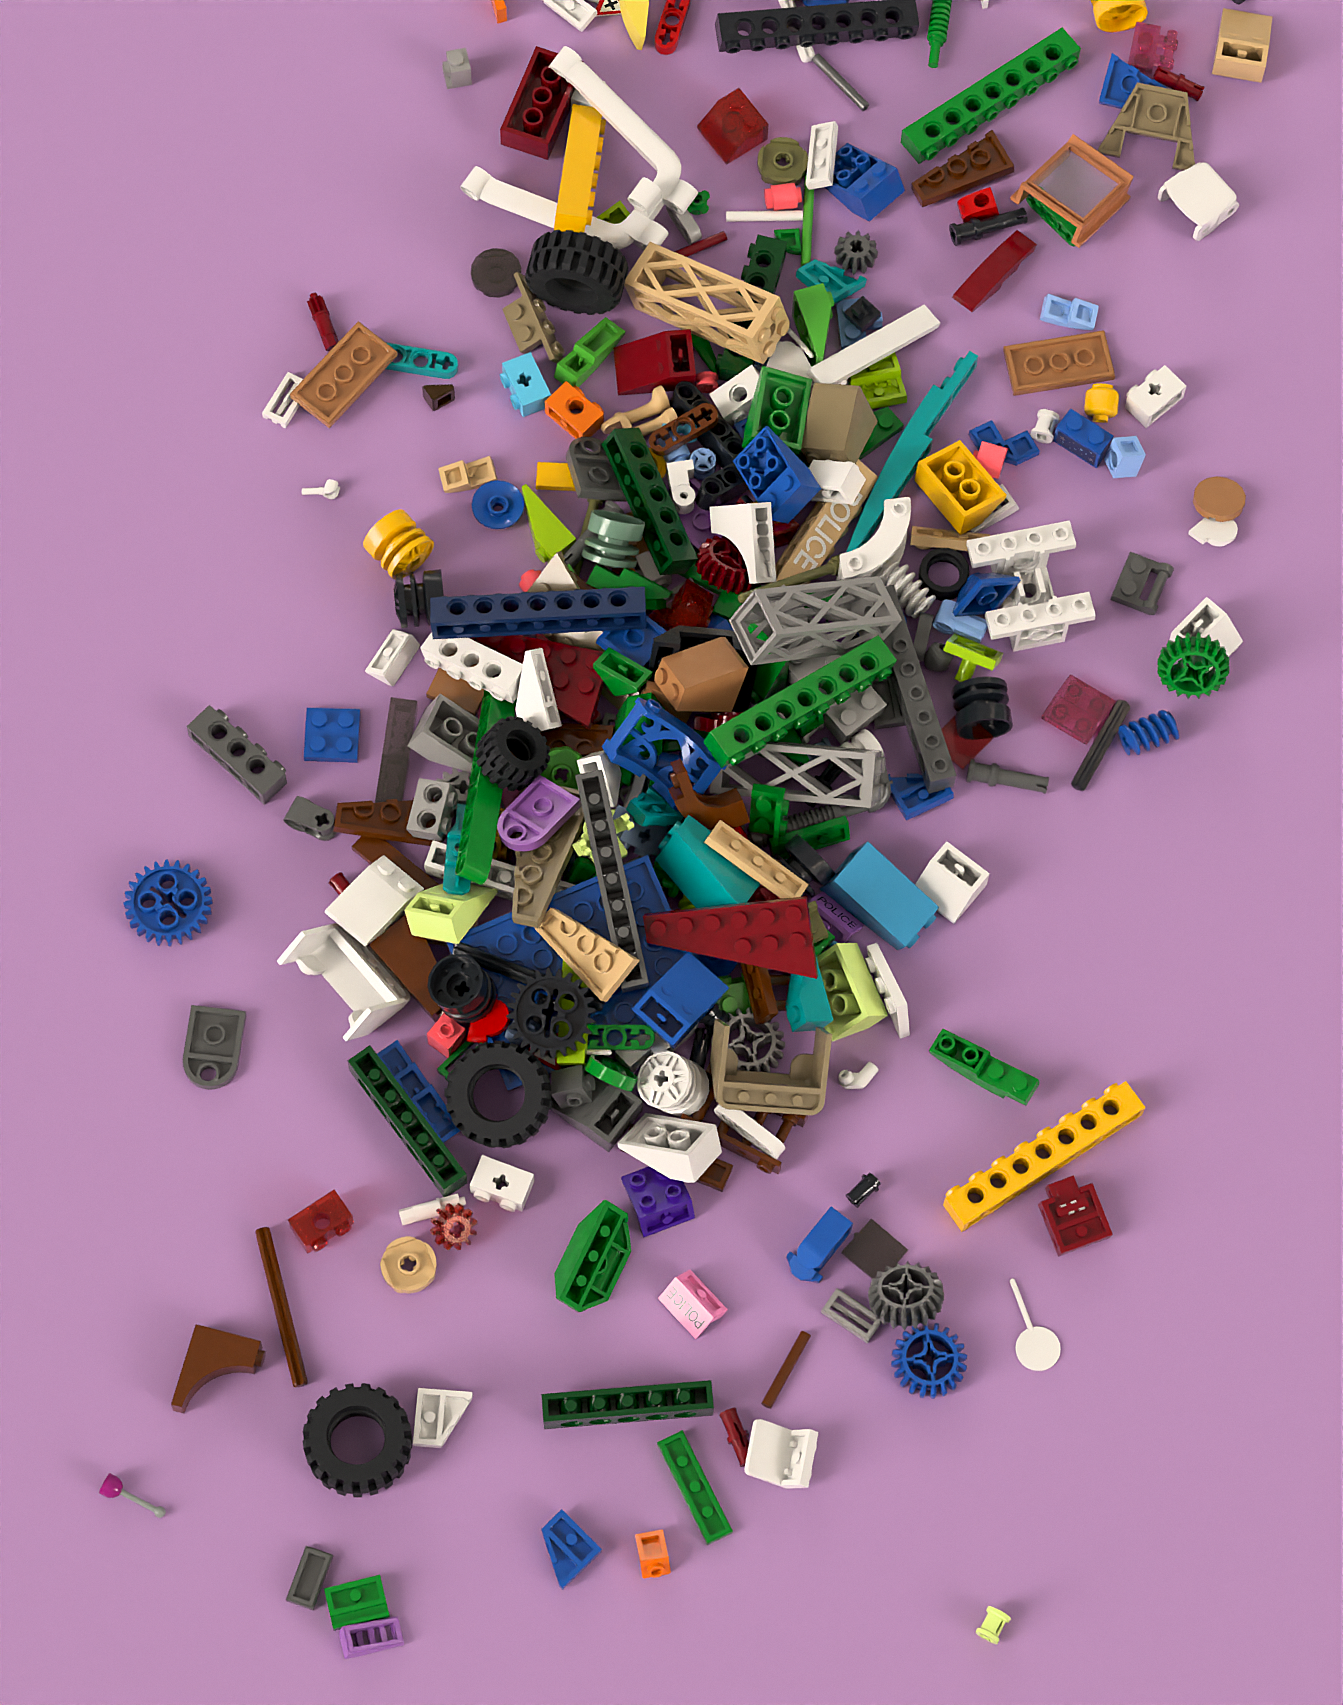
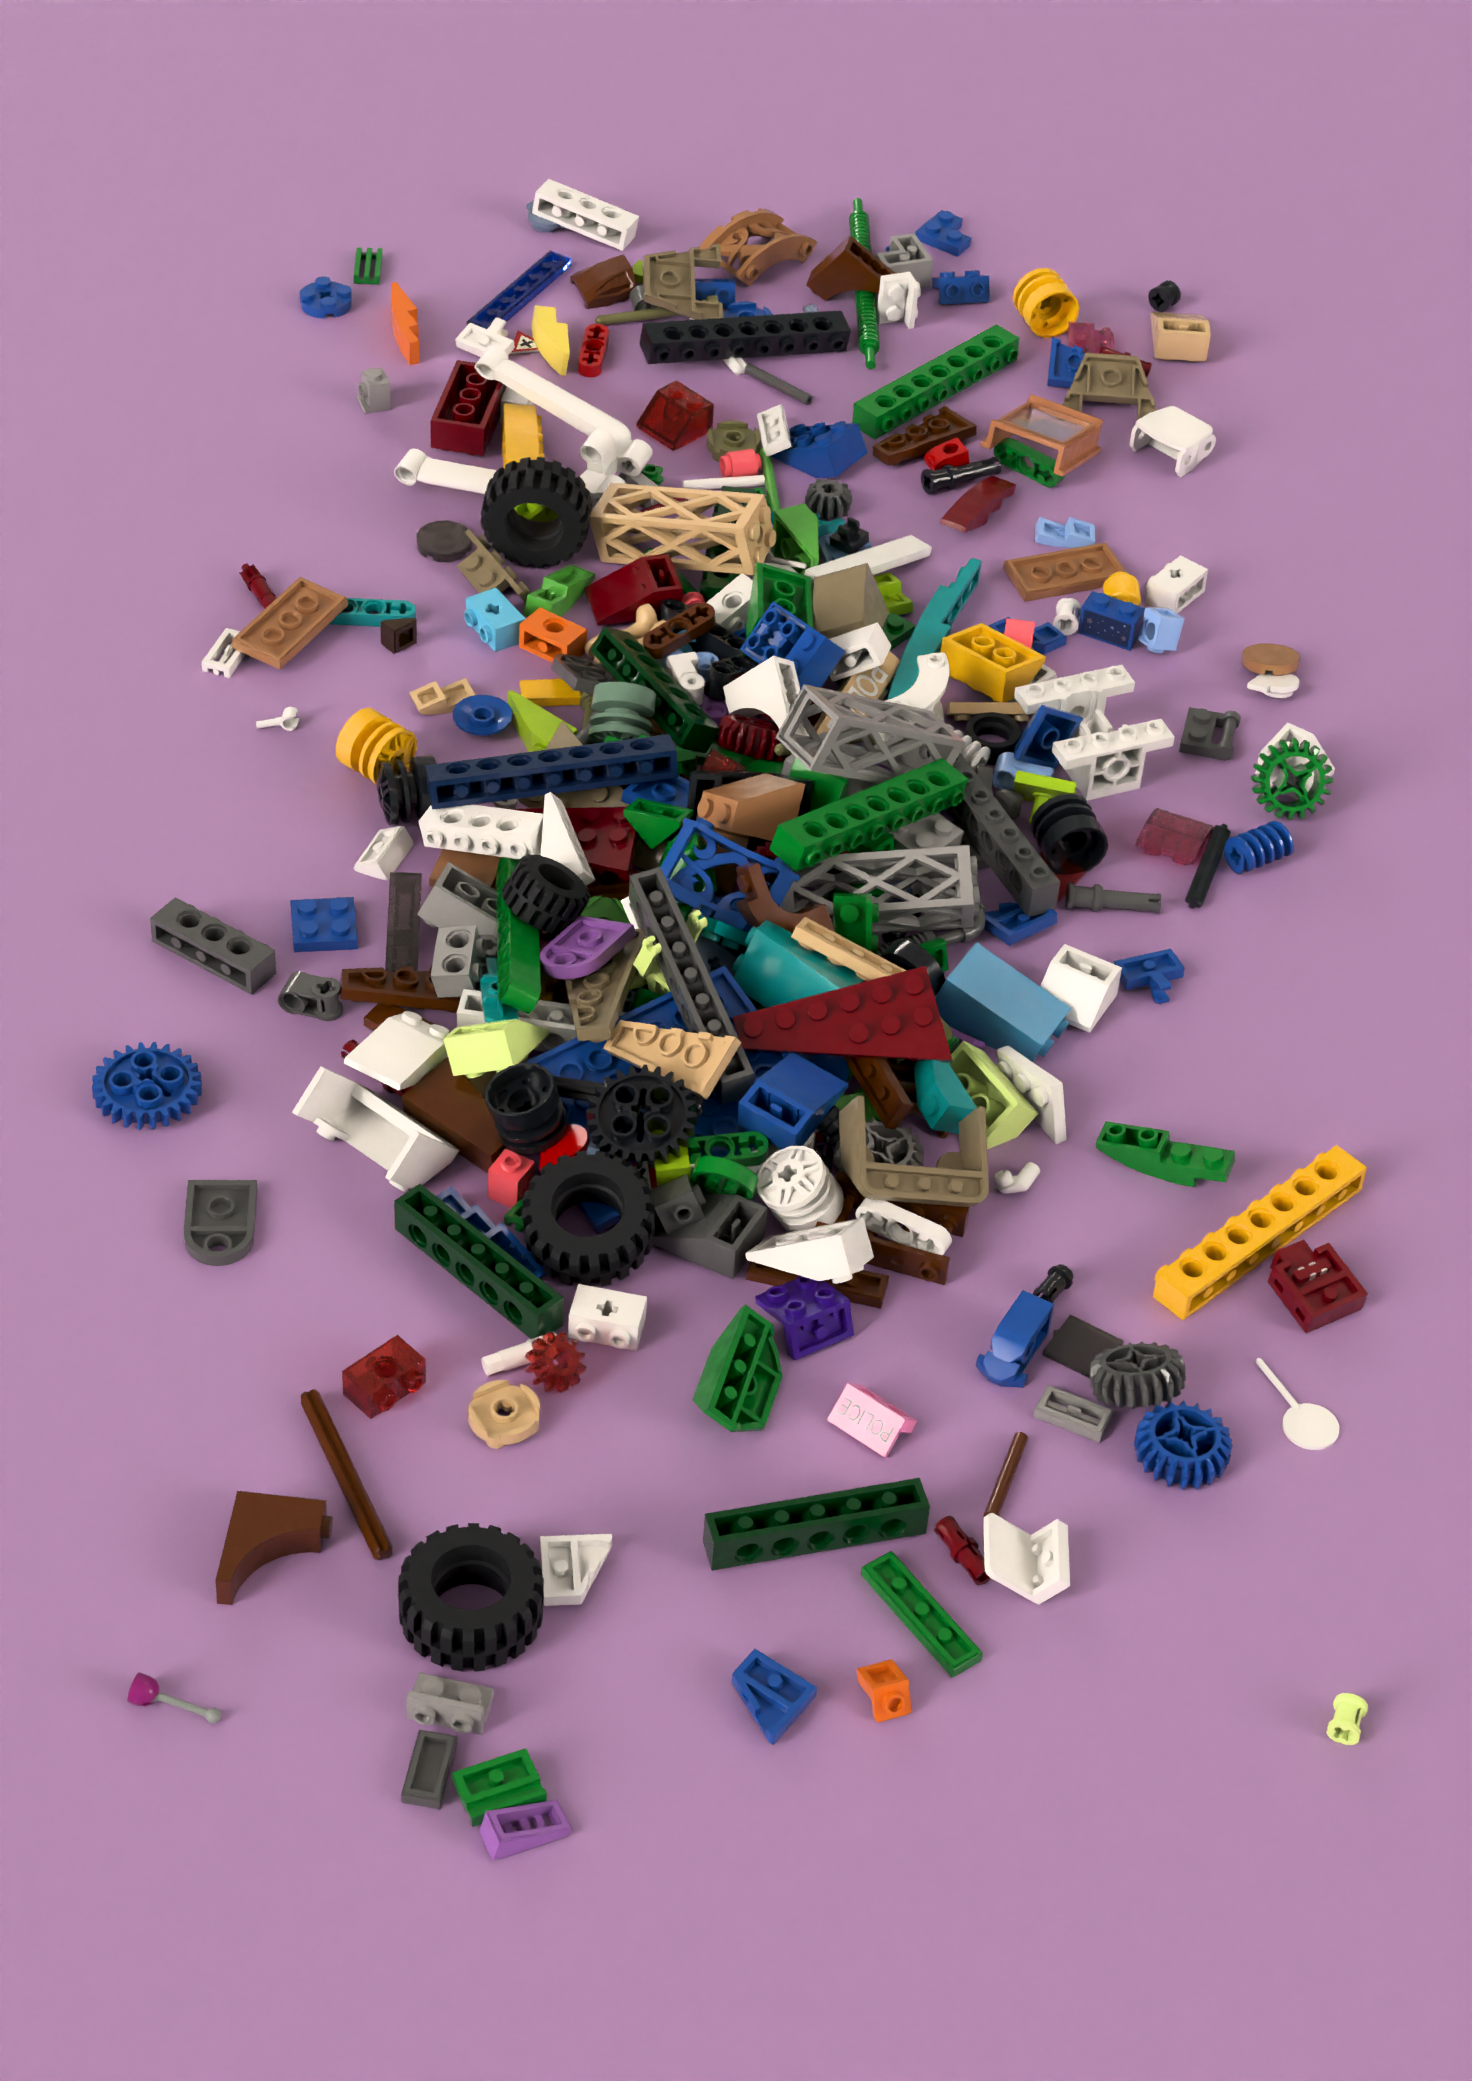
camera: 10 degrees left, 25 degrees down
(331, 1524) = (449, 1703): none -> light grey bracket
(1020, 863) = (1153, 970): none -> blue plate

